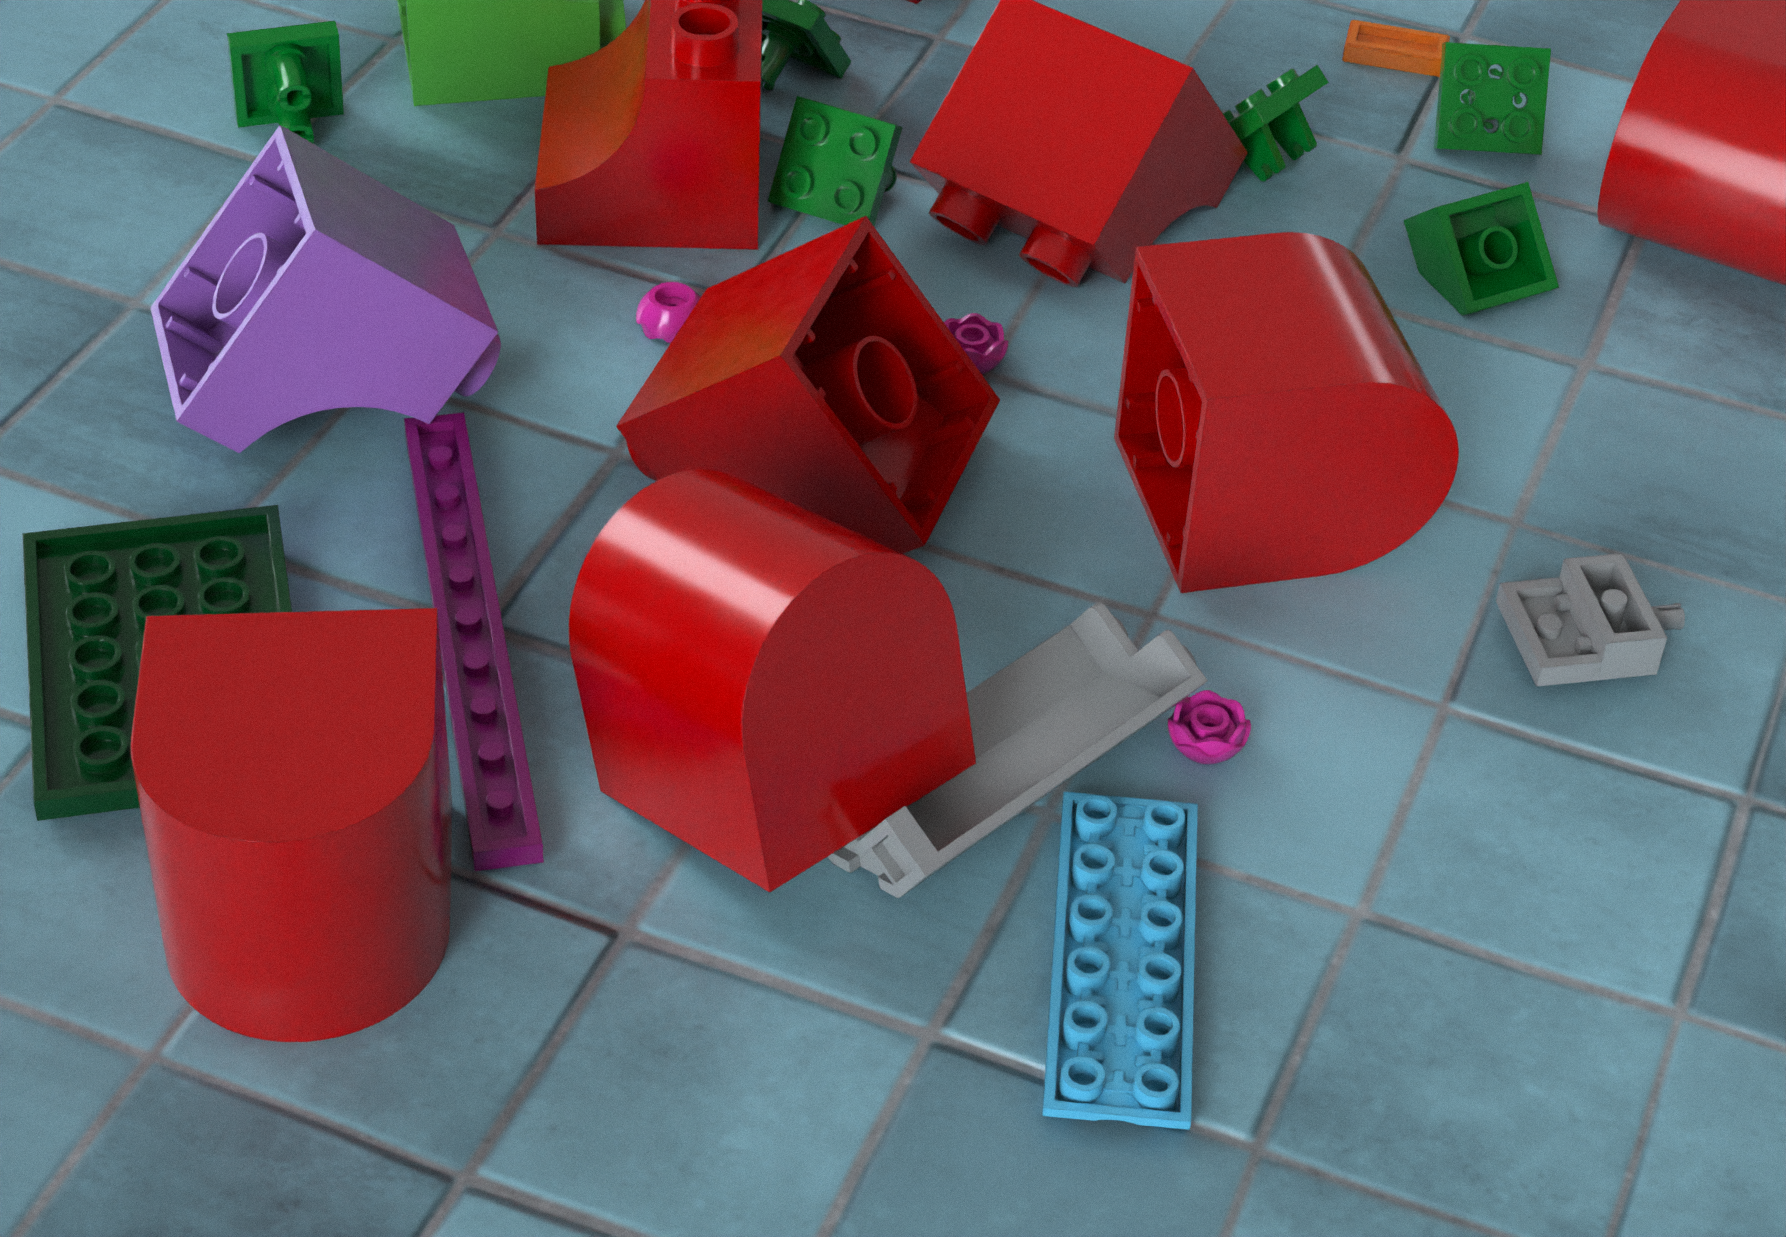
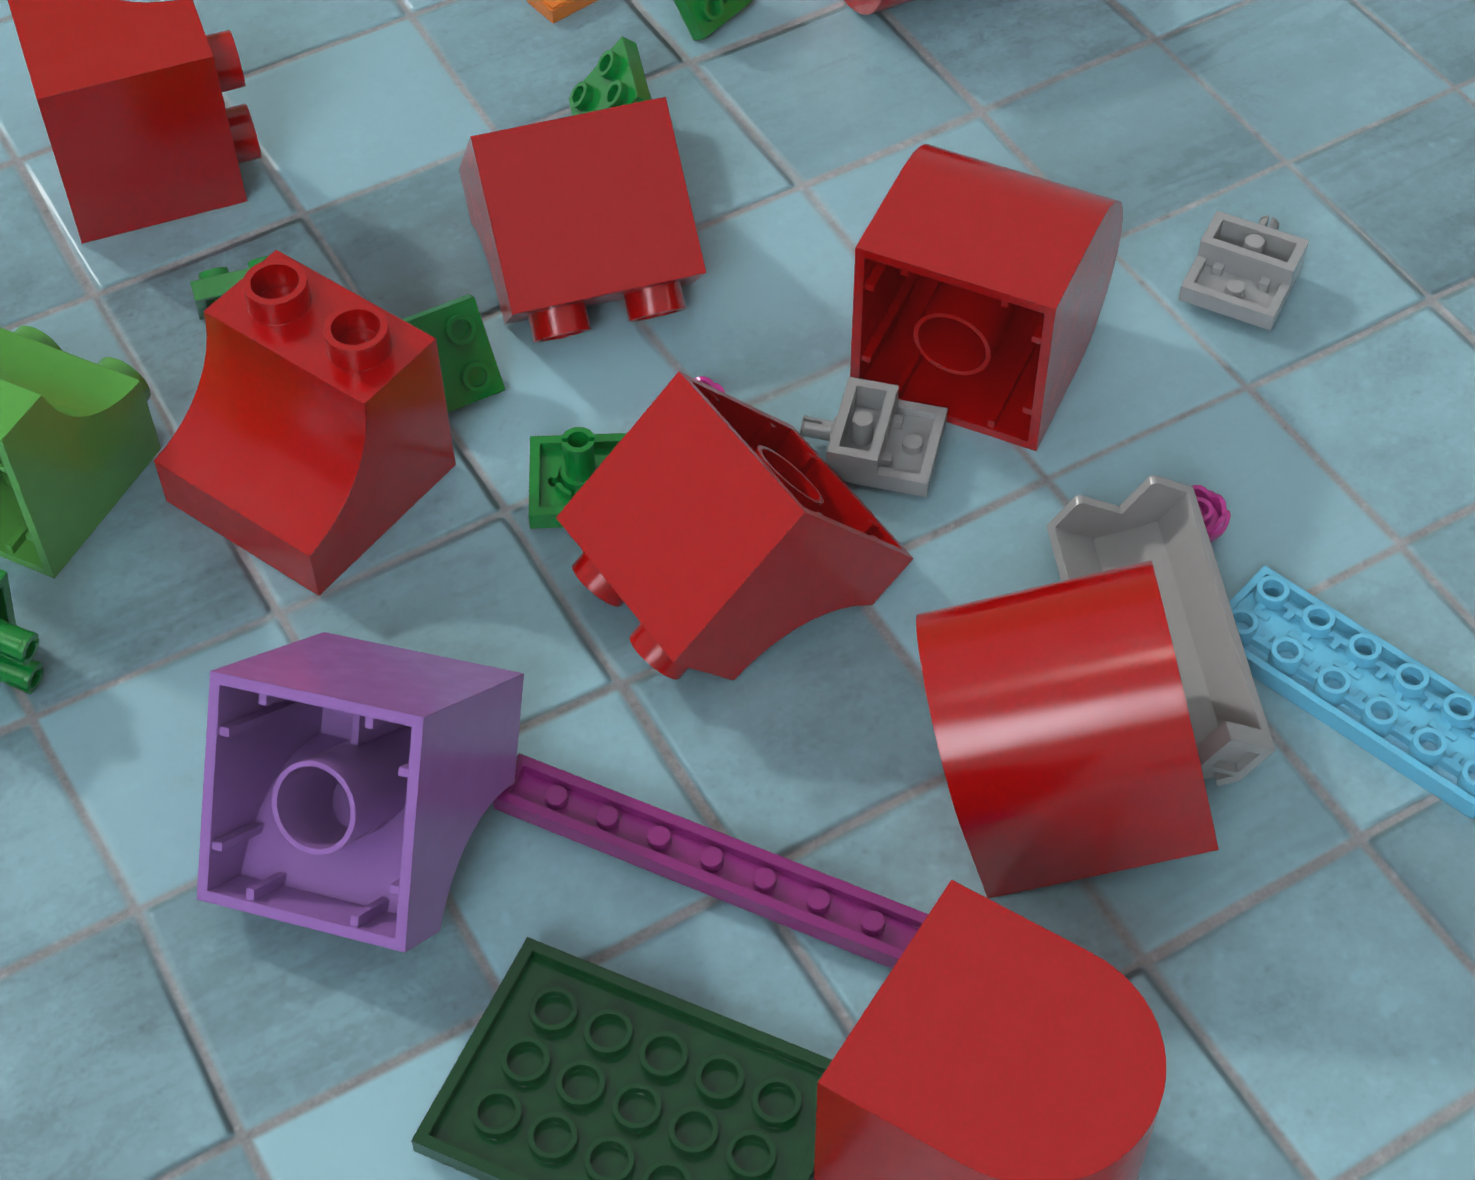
camera: 50 degrees left, 10 degrees up
(665, 310) = (493, 571): dark pink plate -> none
(1059, 469) = (881, 438): none -> light grey plate
(1483, 249) = (842, 84): green slope -> none

